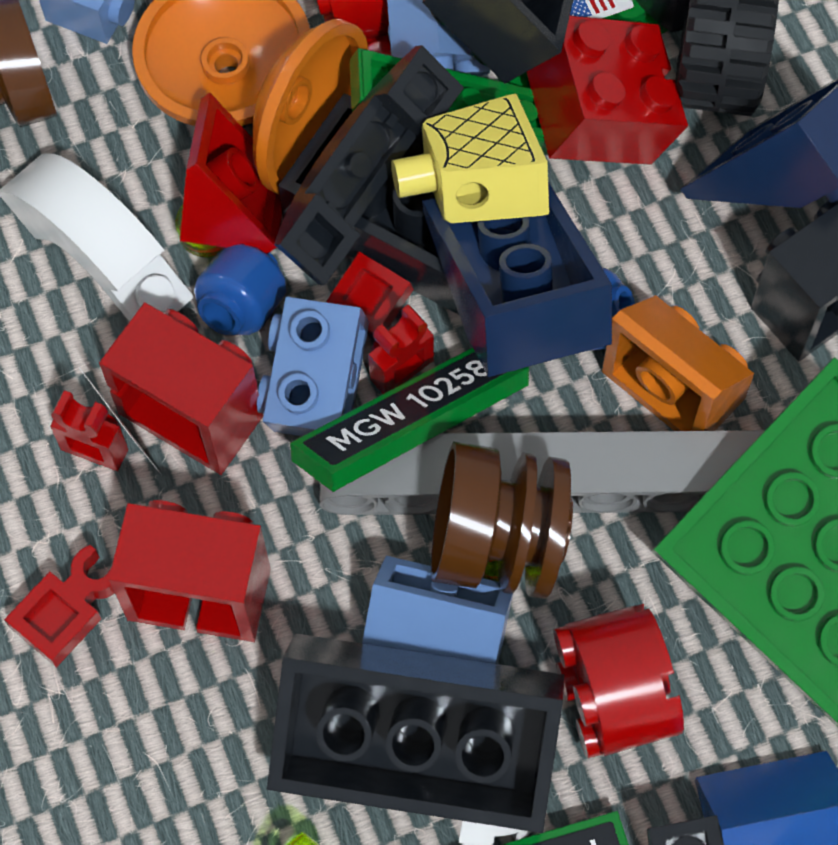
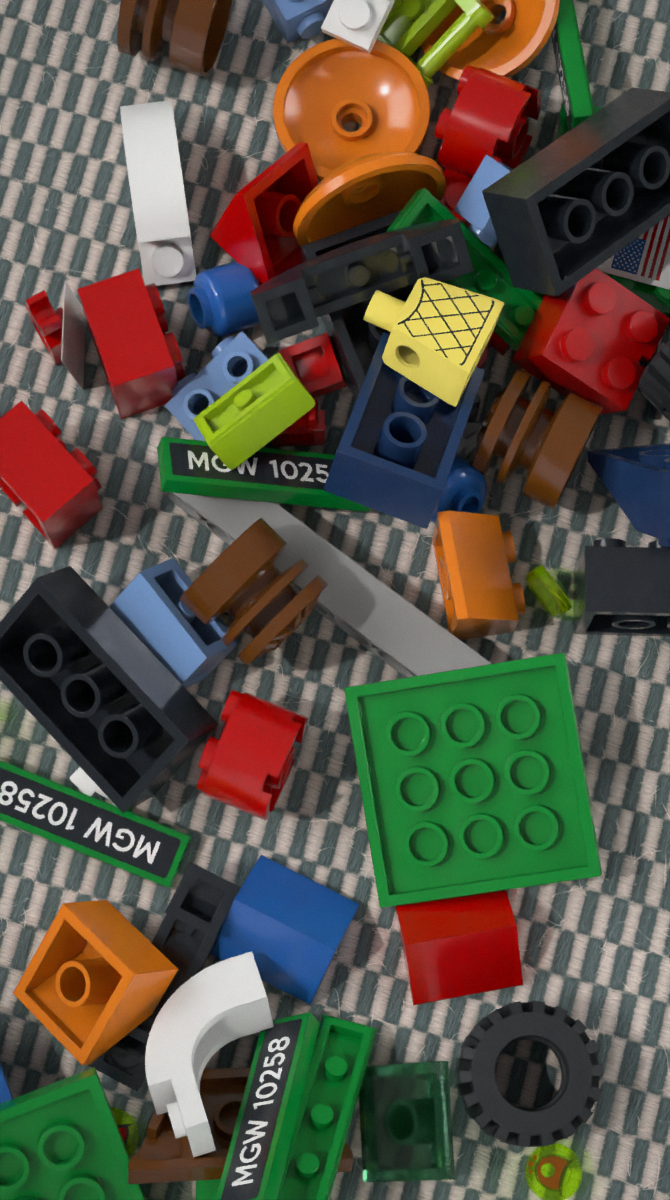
camera: 35 degrees right, 10 degrees up
(361, 355) = (254, 412): none -> lime slope
(644, 204) = (535, 438): none -> reddish brown wheel
(751, 335) = (547, 592): none -> clear neon green tile

